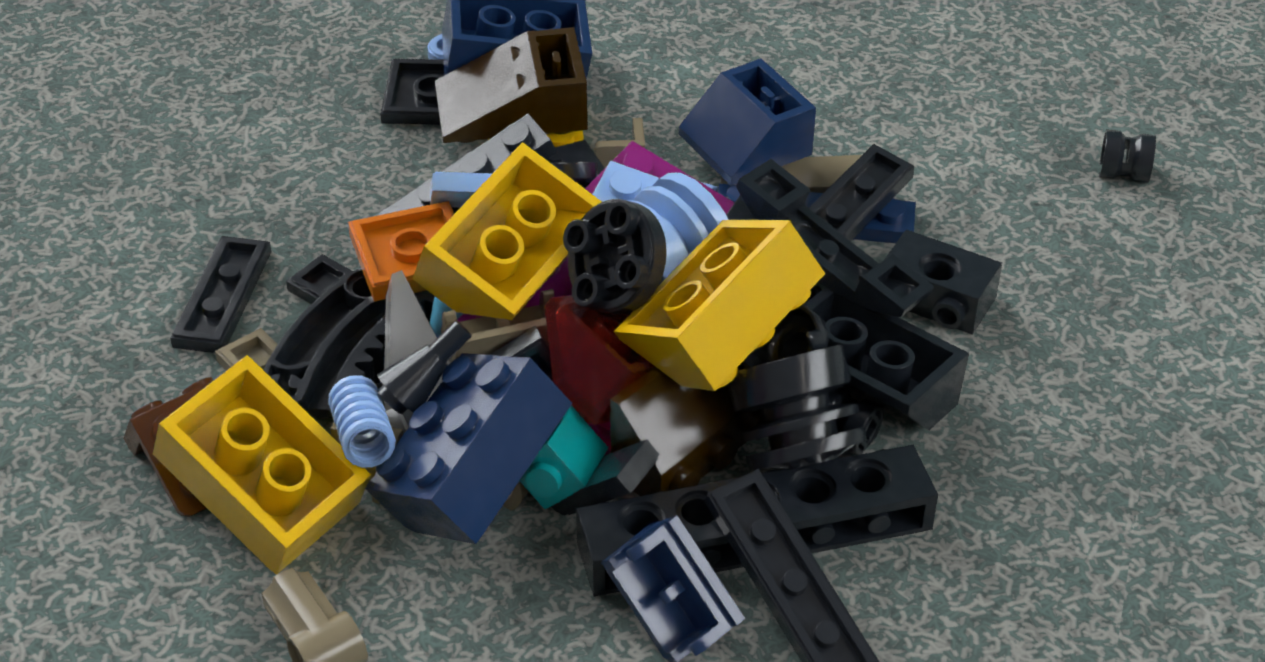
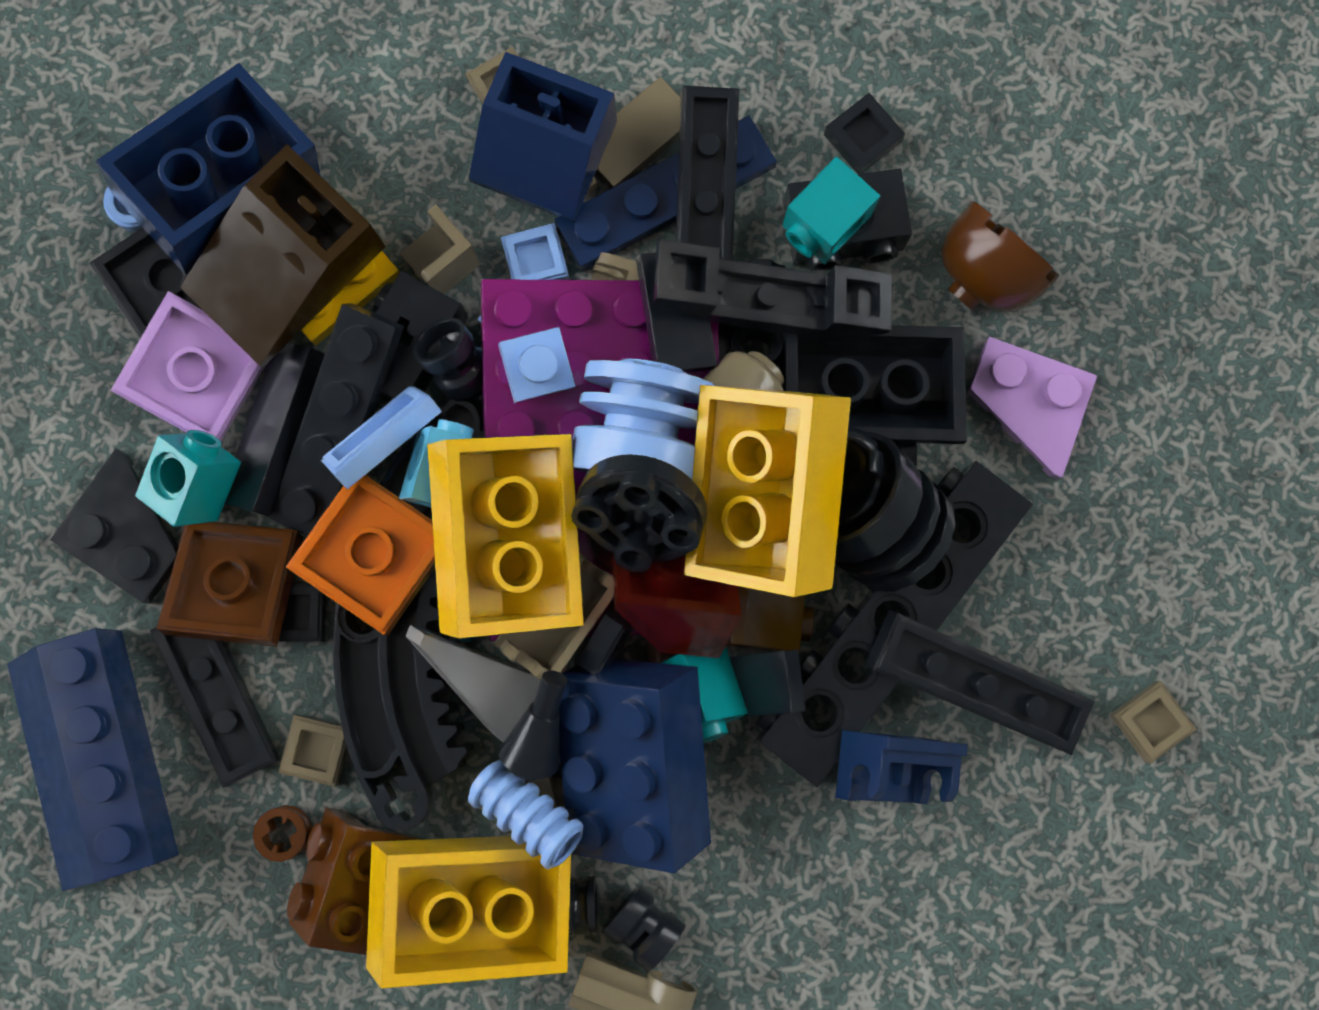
camera: 35 degrees left, 40 degrees up
(112, 273) = (91, 757): none -> dark blue slope
(171, 375) = (265, 825): none -> reddish brown bush
(261, 184) = (119, 532): none -> black wing
(295, 237) = (230, 583): none -> reddish brown tile
(337, 166) = (188, 478): none -> teal brick
(337, 545) = (583, 905): none -> black bush
(368, 583) = (644, 928): none -> black wheel
(383, 196) = (274, 427): none -> black tile
(396, 133) = (188, 370): none -> lavender tile
(921, 237) = (829, 211): none -> teal brick
(999, 244) = (864, 134): none -> black plate
(1004, 466) = (1033, 400): none -> lavender wing
(1033, 354) = (992, 264): none -> reddish brown cylinder

